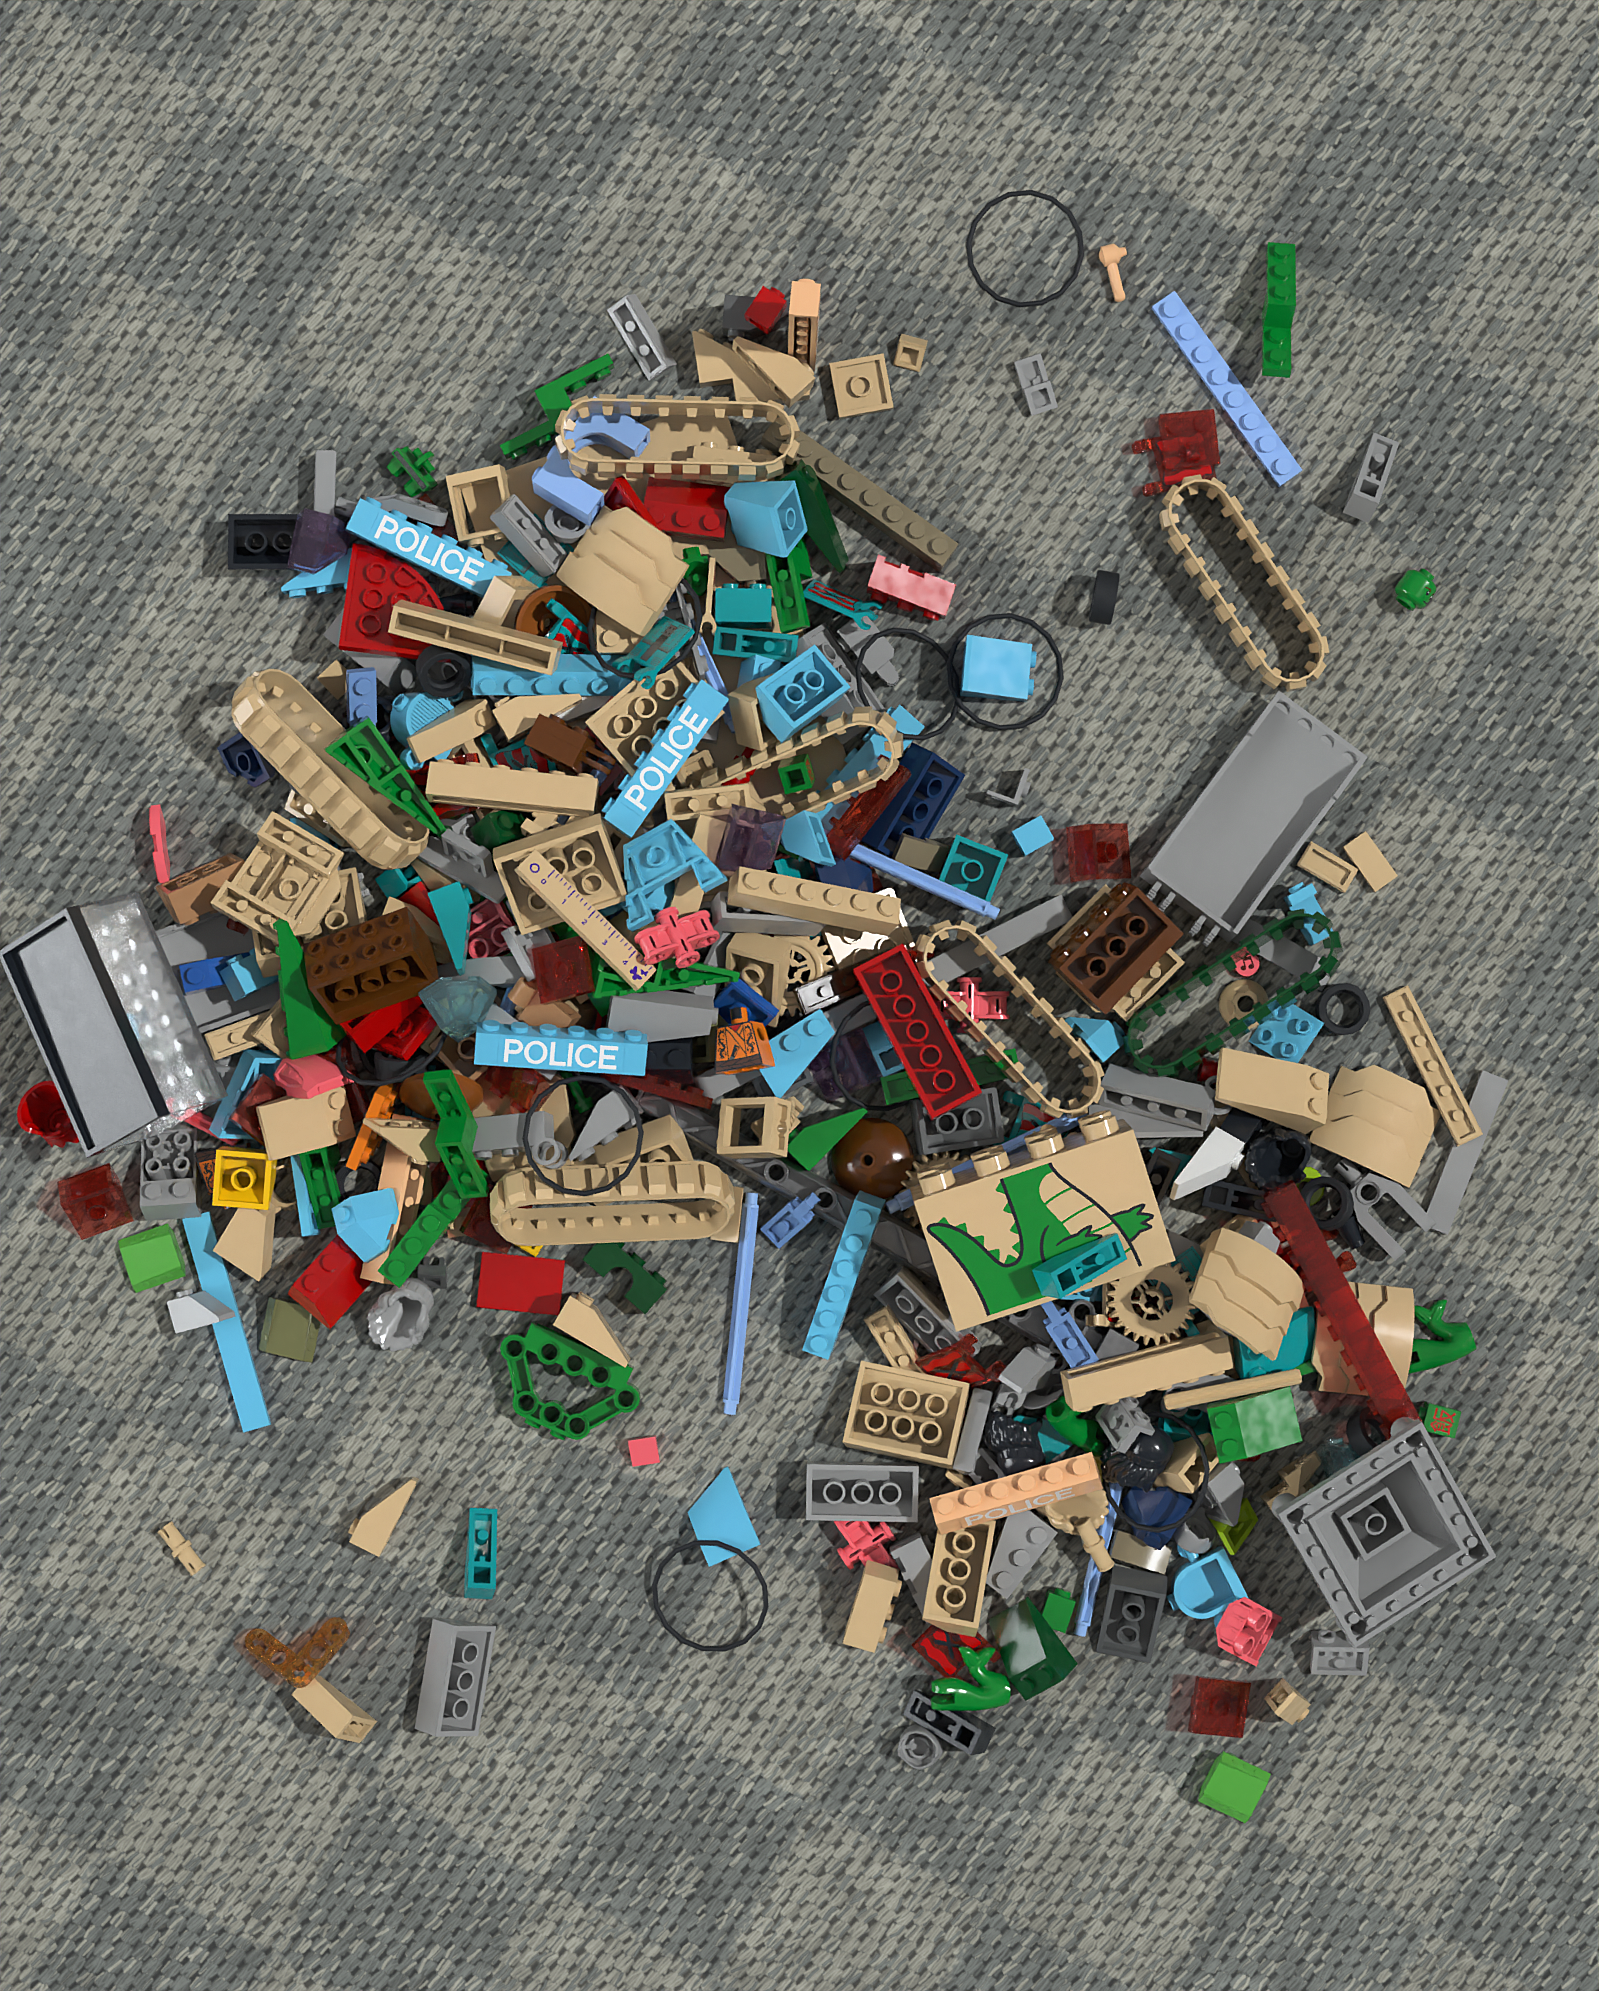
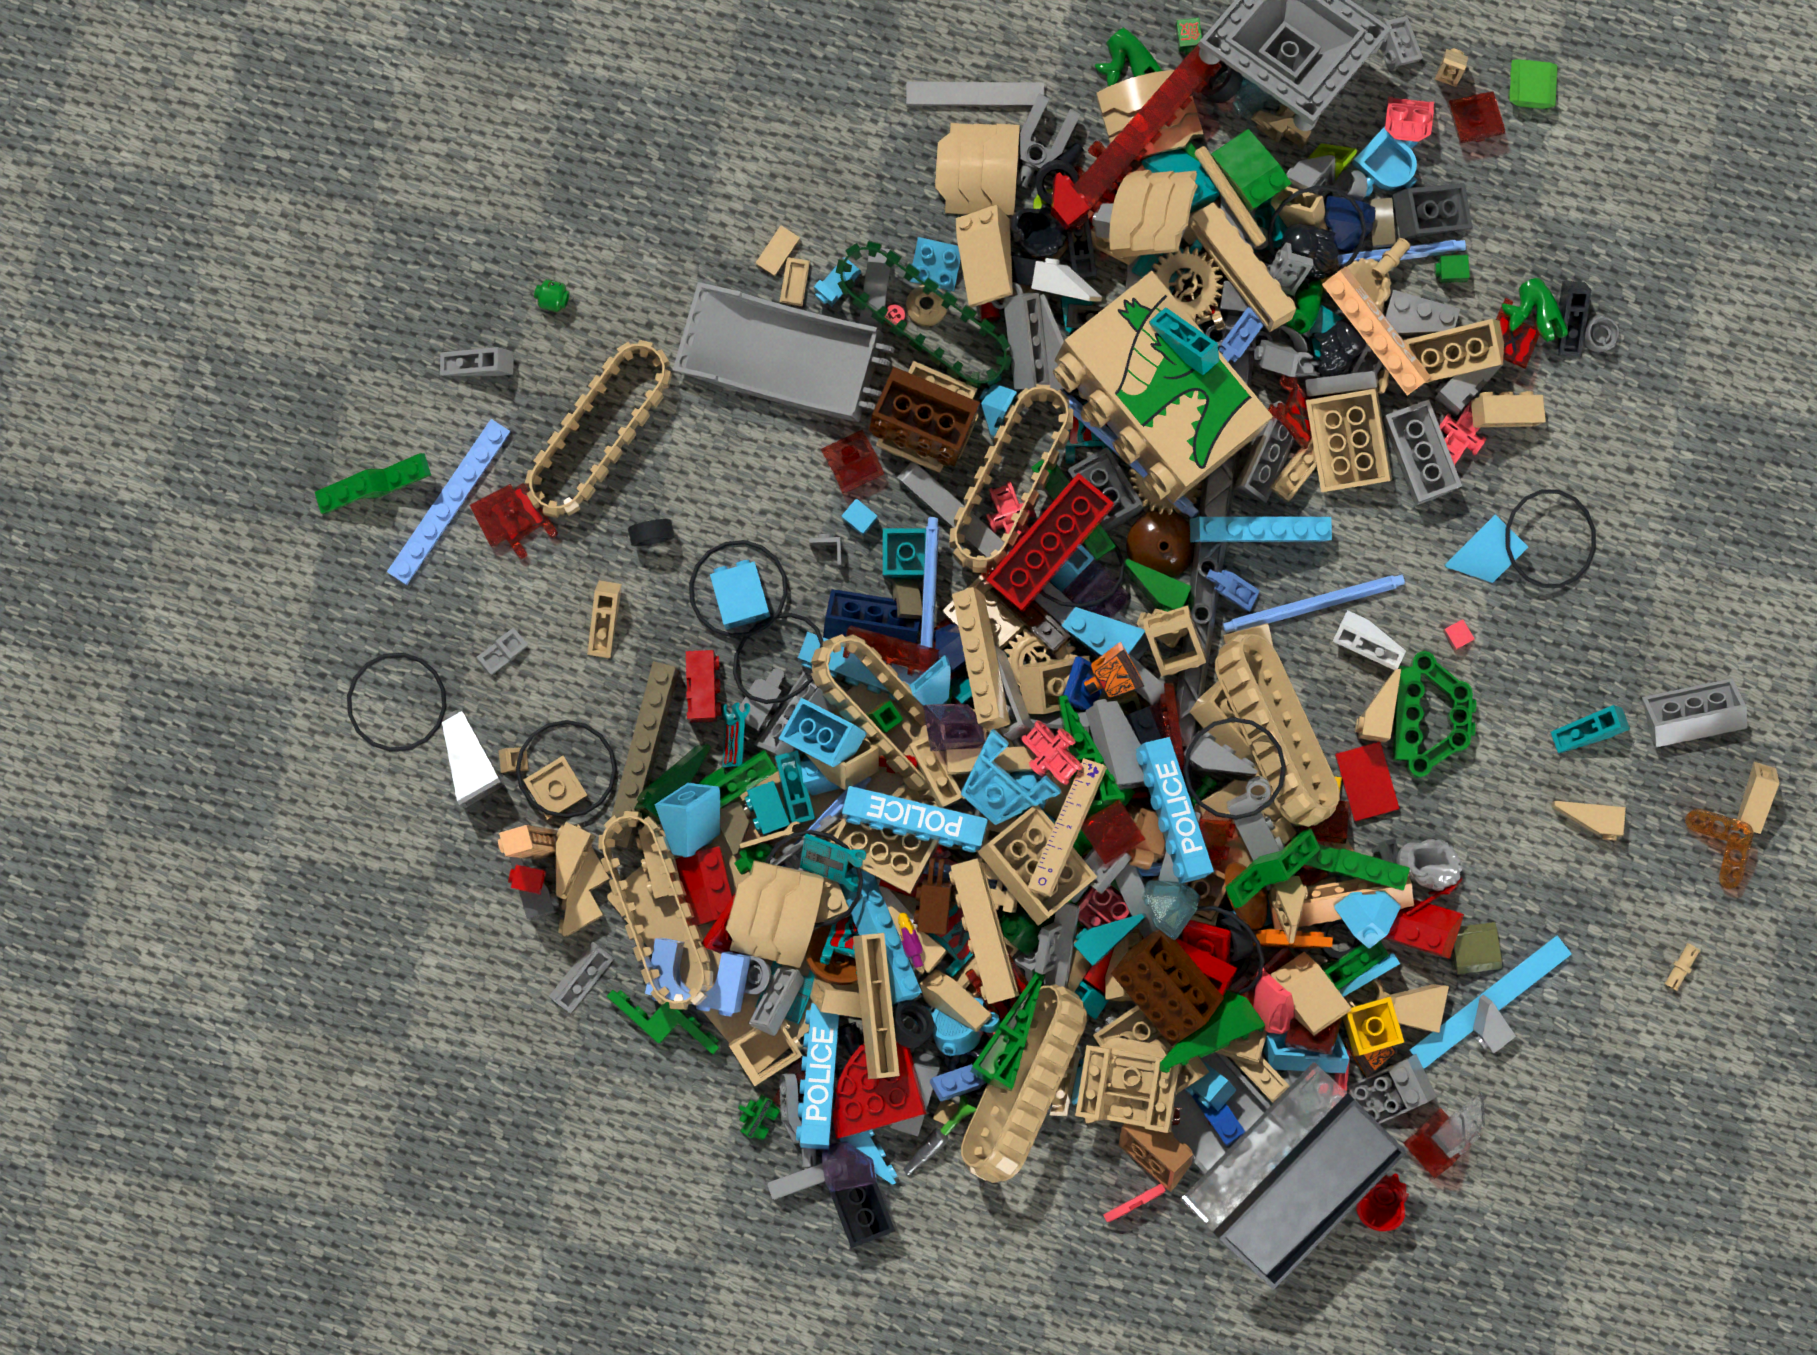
camera: 110 degrees left, 5 degrees down
(98, 1232) = (1461, 1127): none -> clear slope
(152, 1258) = (1463, 1078): bright green slope -> none
(245, 760) = (1040, 1161): dark blue slope -> none
(313, 658) = (939, 1137): none -> flat silver piece
(363, 1320) = (1435, 894): none -> red piece
(533, 703) = (910, 940): none -> magenta piece
(646, 1286) = (1331, 681): dark green arch -> none
(674, 1346) = (1368, 640): none -> white slope
(926, 301) = (469, 762): none -> slope
(931, 417) = (612, 779): none -> black piece
(1029, 510) = (604, 618): none -> tan slope
(1030, 1649) = (1491, 276): dark green slope -> none
(1110, 257) = (378, 632): light nougat piece -> none
(1294, 1199) = (1066, 202): none -> red slope
(1358, 994) = (900, 210): black tyre -> none
(1432, 1066) = (918, 143): tan tile -> none

